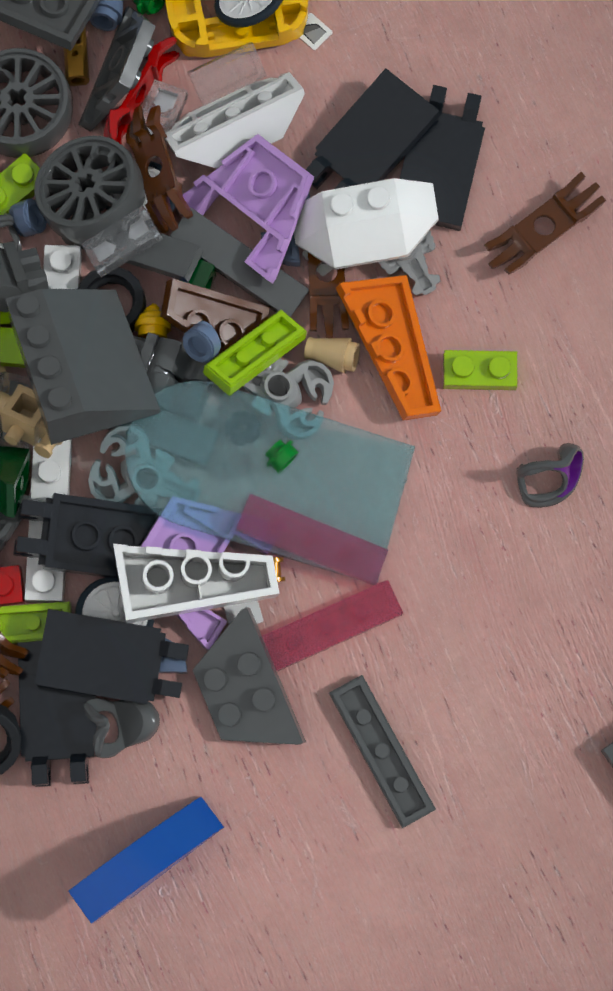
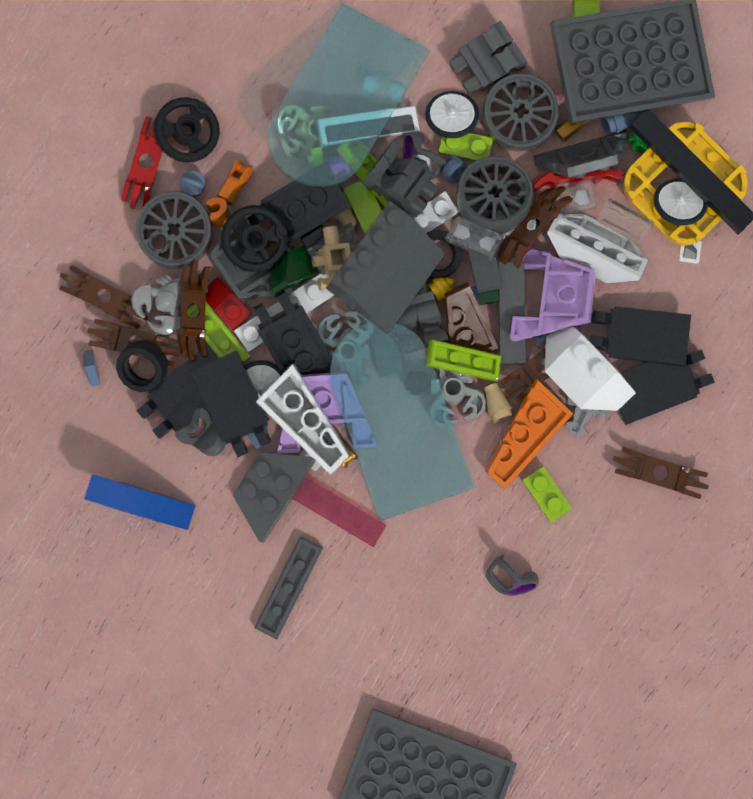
camera: 55 degrees right, 10 degrees up
(201, 342) = (445, 328): sand blue tile -> none
(281, 455) = (412, 418): green plate -> none
(311, 539) = (377, 468): clear pink tile -> none

